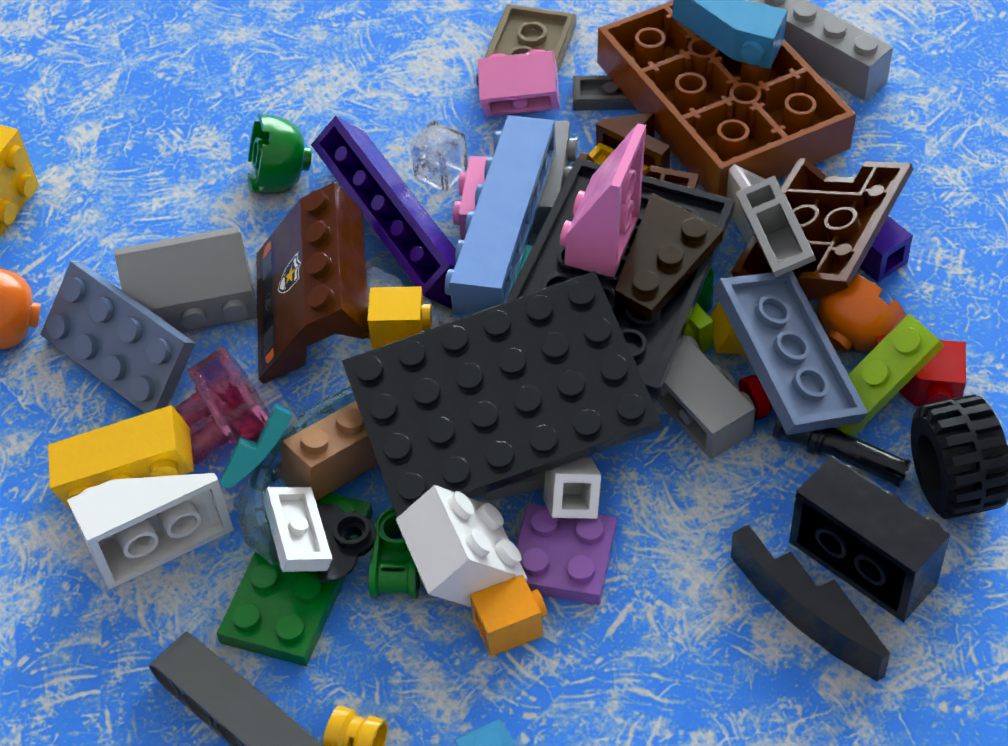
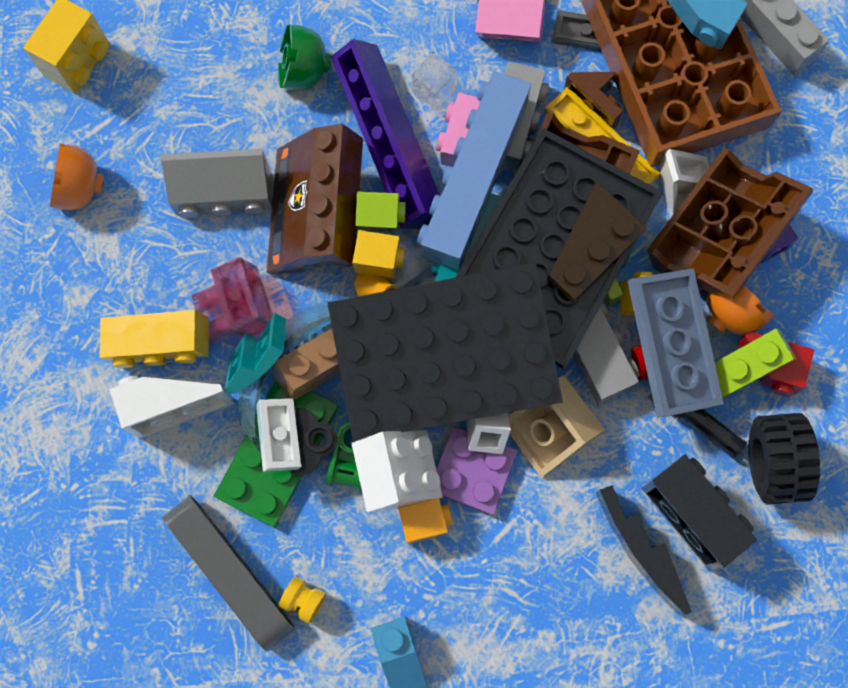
camera: 10 degrees right, 25 degrees up
(117, 338) = (159, 224): sand blue plate -> none
(393, 266) = (379, 211): none -> lime brick
(607, 209) = (554, 203): bright pink slope -> none
(657, 484) = (554, 431): none -> tan slope
(775, 226) = (689, 229): light grey slope -> none

